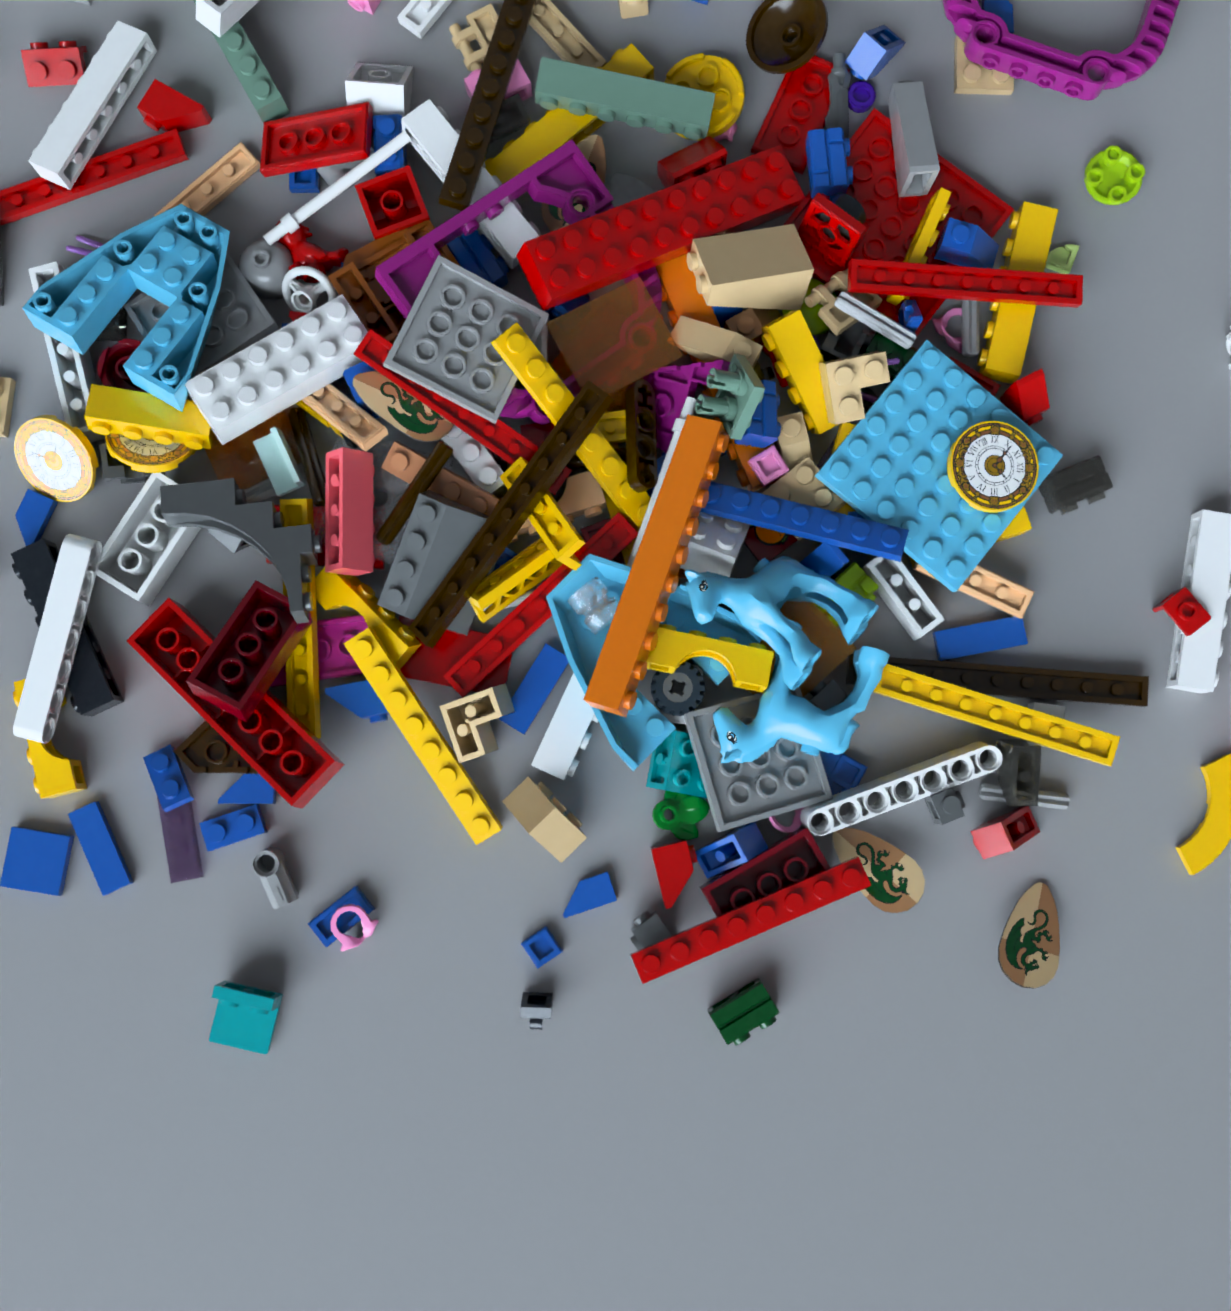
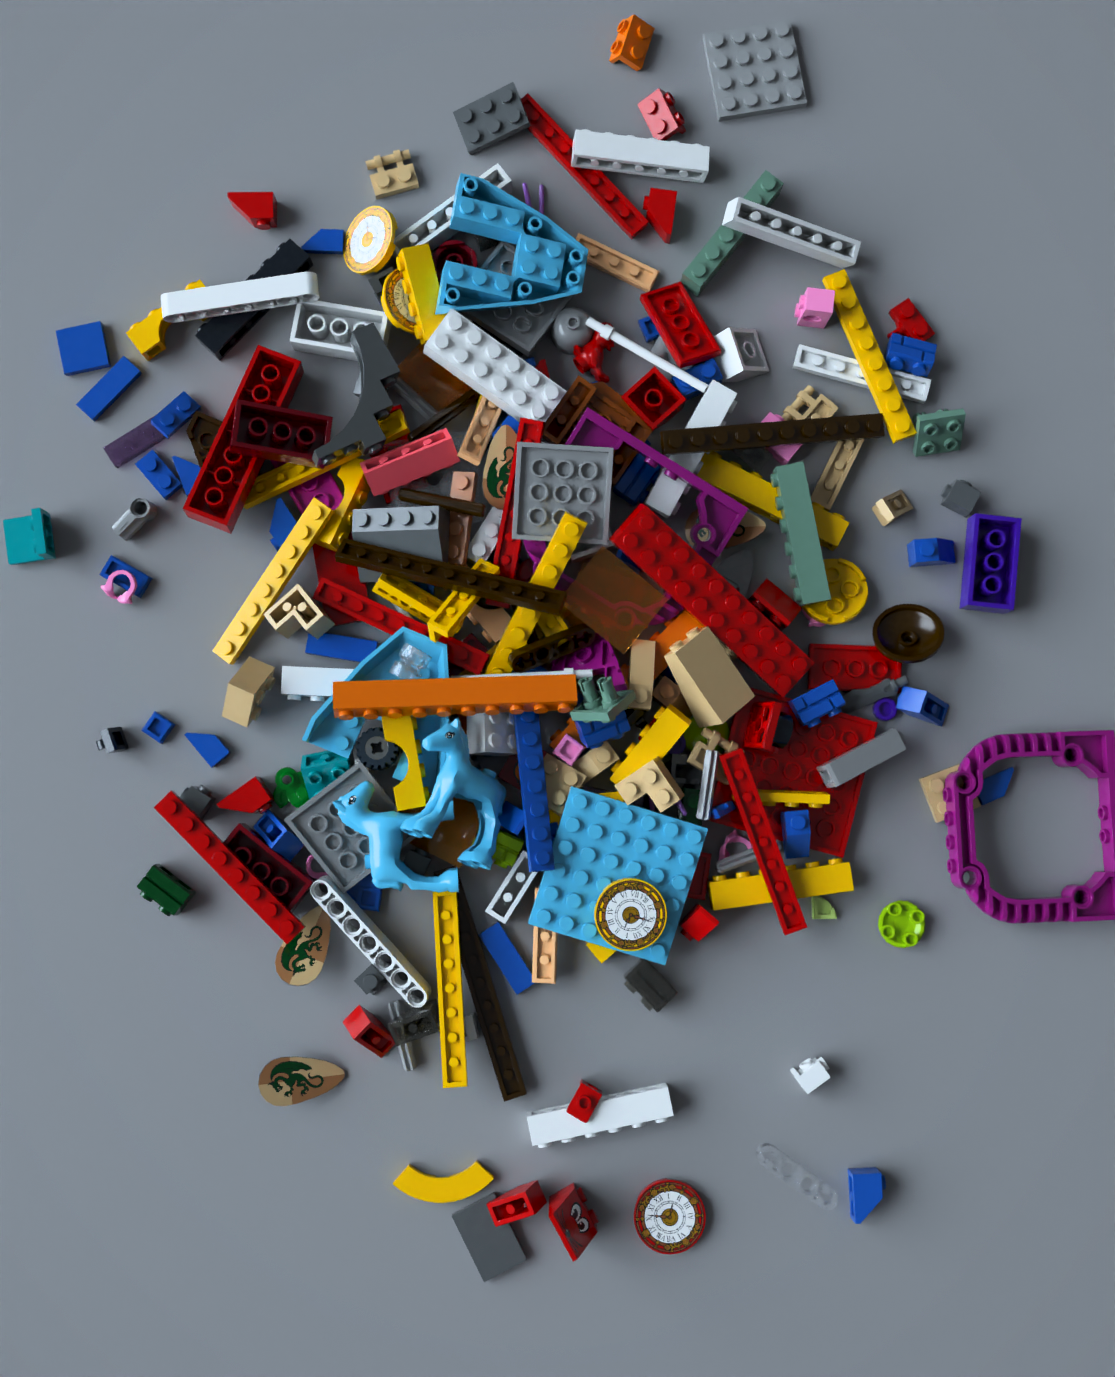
camera: 60 degrees right, 0 degrees up
(279, 462) = (431, 397): light aqua panel -> none
(305, 296) = (559, 365): white piece -> none

